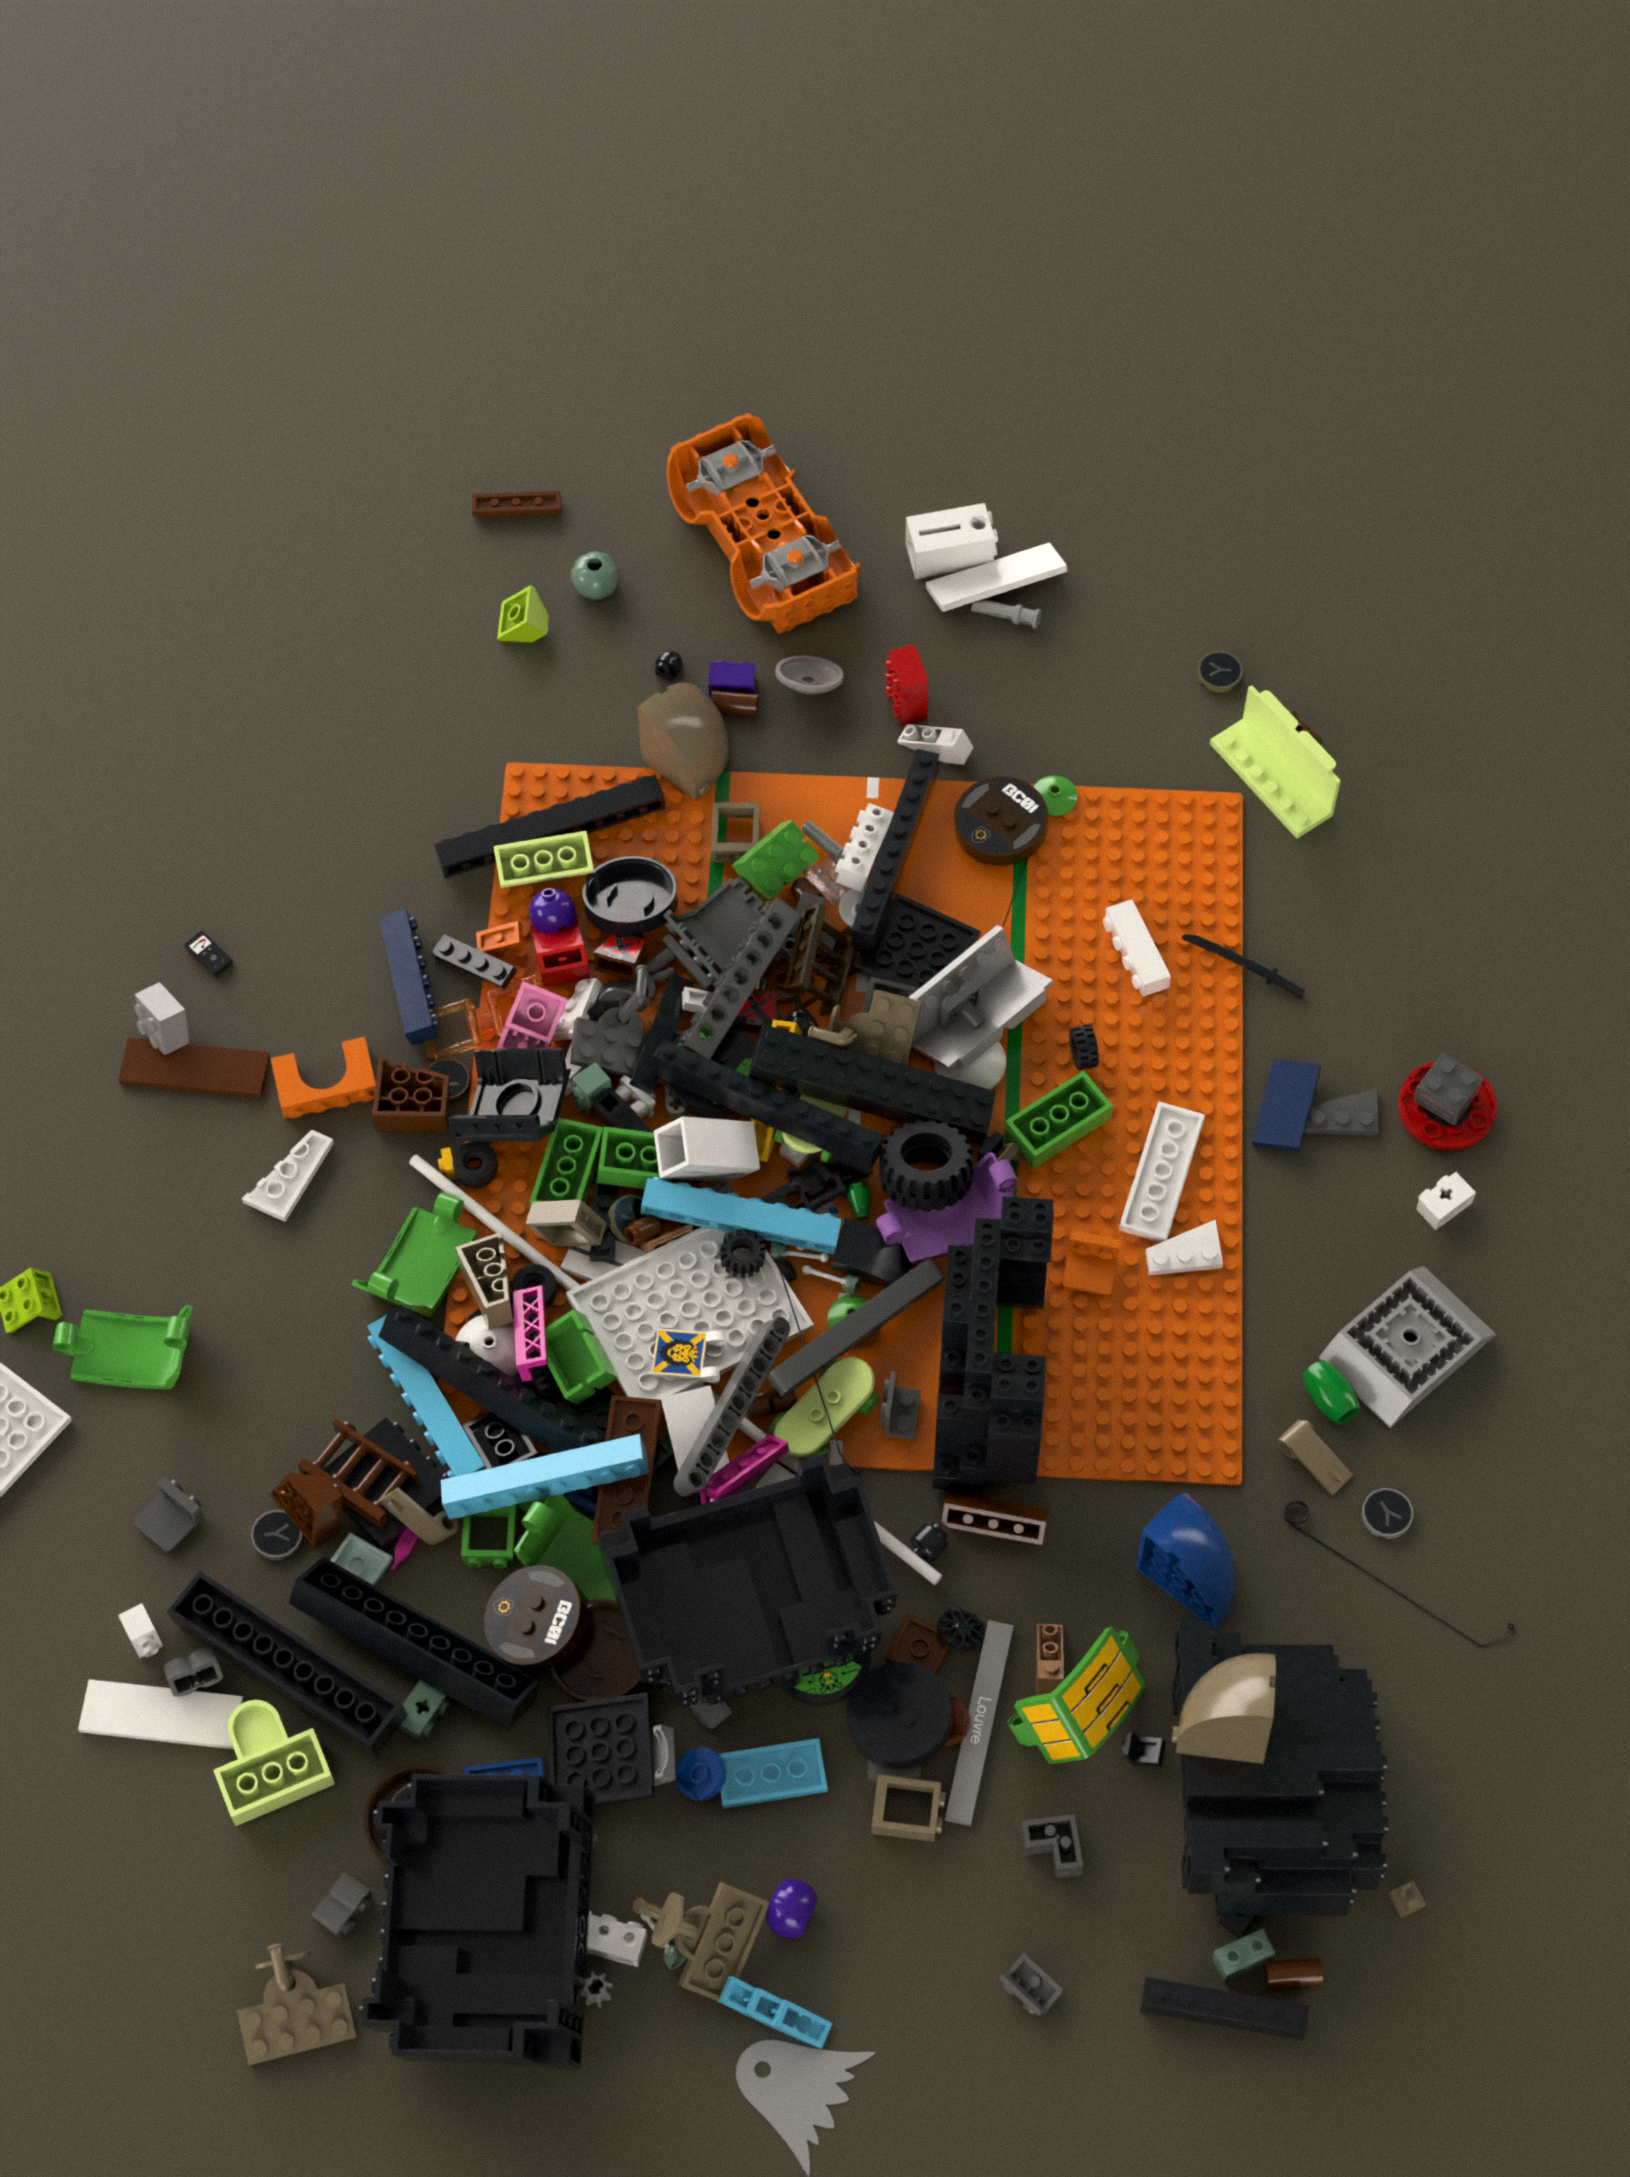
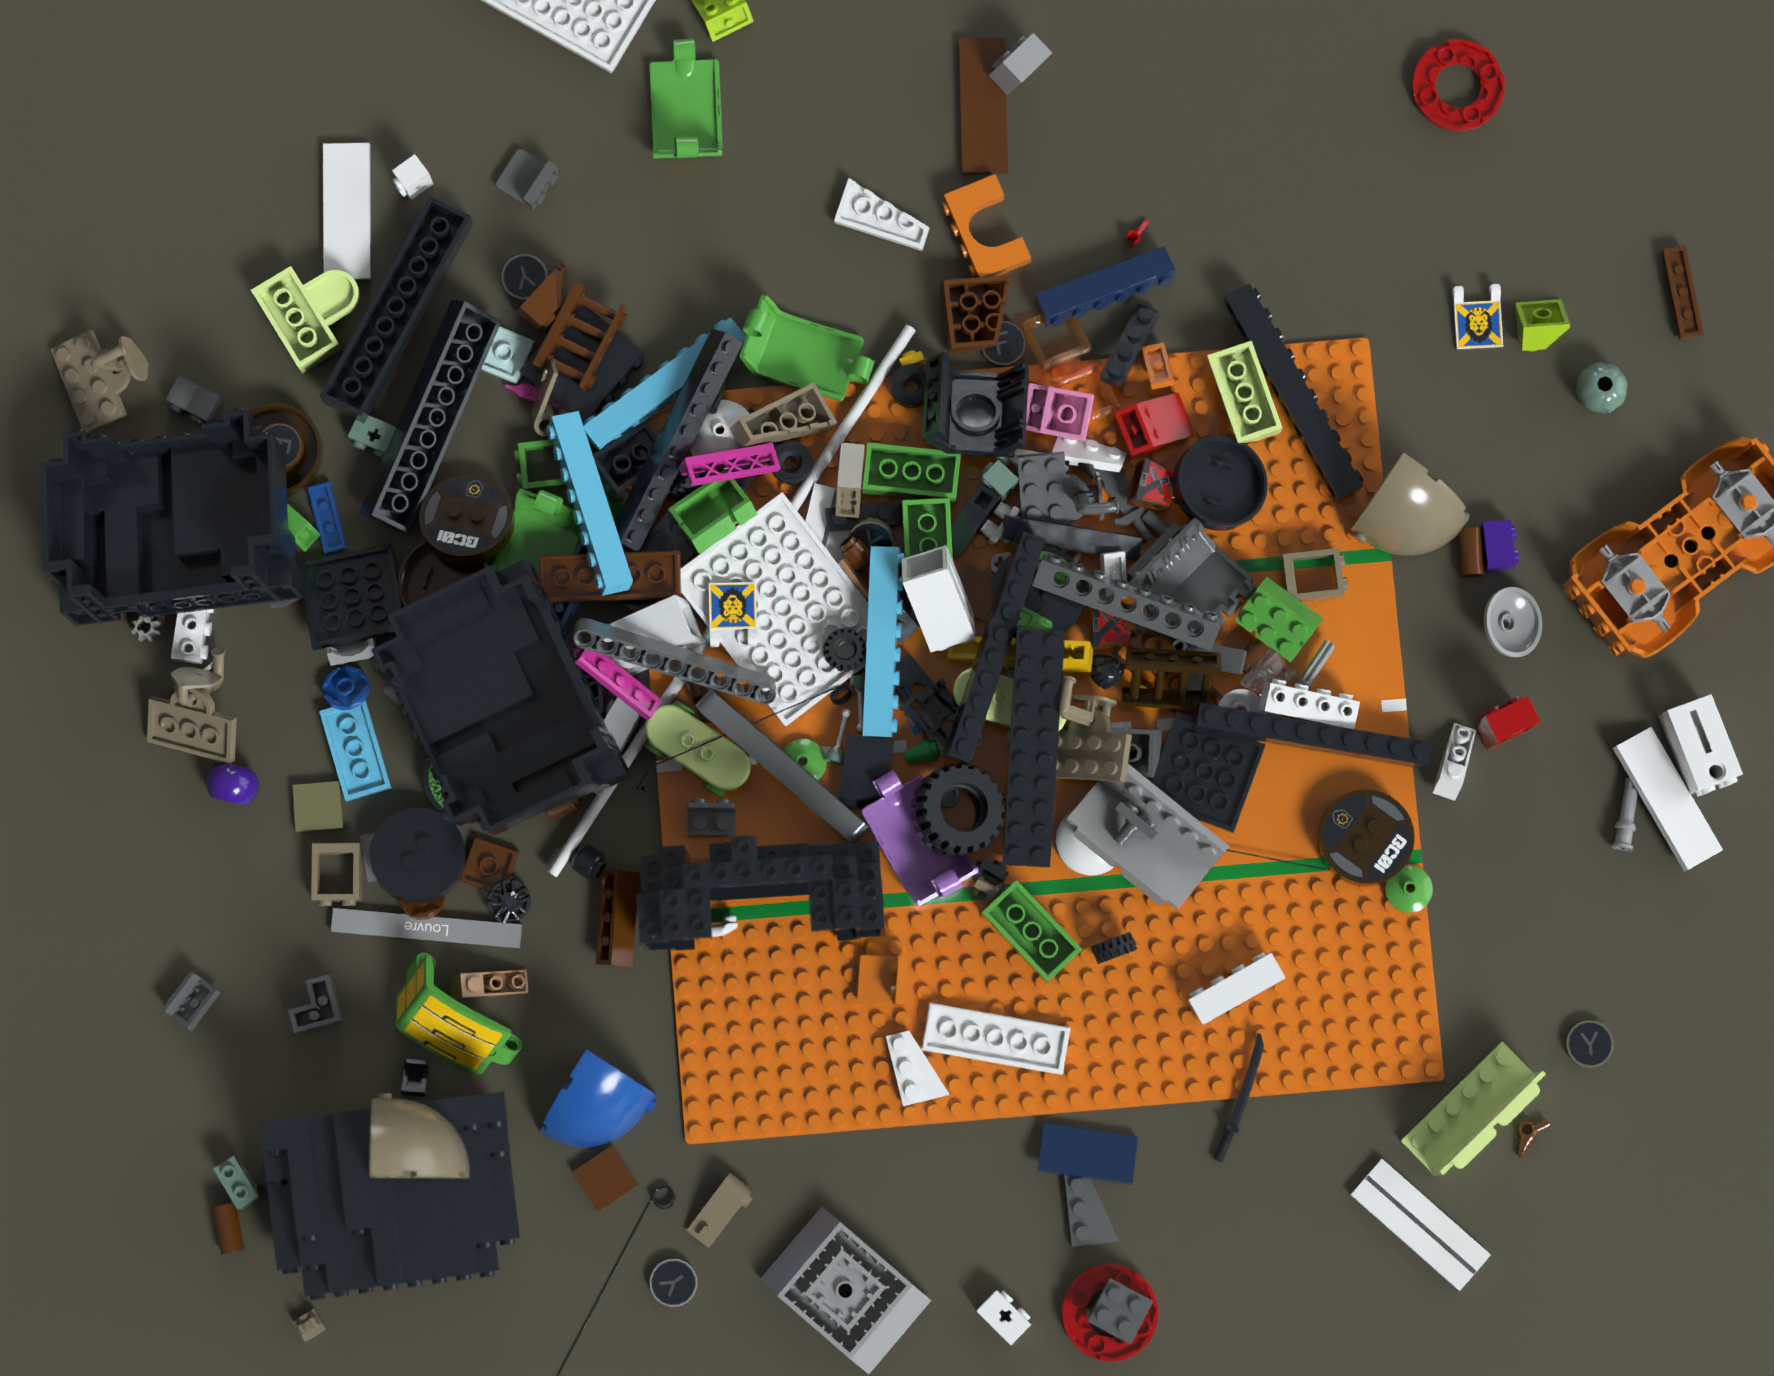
camera: 80 degrees right, 20 degrees up
(191, 1672) = (383, 230): dark grey brick -> none
(208, 953) = (1108, 92): black tile -> none
(279, 682) = (1466, 54): none -> red plate
(361, 948) = (1134, 236): none -> red hand
(508, 670) = (1478, 322): none -> flag
(552, 910) = (1192, 411): dark purple cylinder -> none
(668, 664) = (1509, 479): black piece -> none
(775, 2012) = (143, 783): medium azure slope -> none
(796, 2088) = (85, 811): light grey piece -> none
(828, 1823) = (318, 806): none -> olive tile
(1224, 2008) = (189, 1170): black brick -> none
(1270, 1568) = (605, 1178): none -> reddish brown tile
(1331, 1392) = (784, 1220): green piece -> none
(1379, 830) = (1420, 1224): none -> white tile

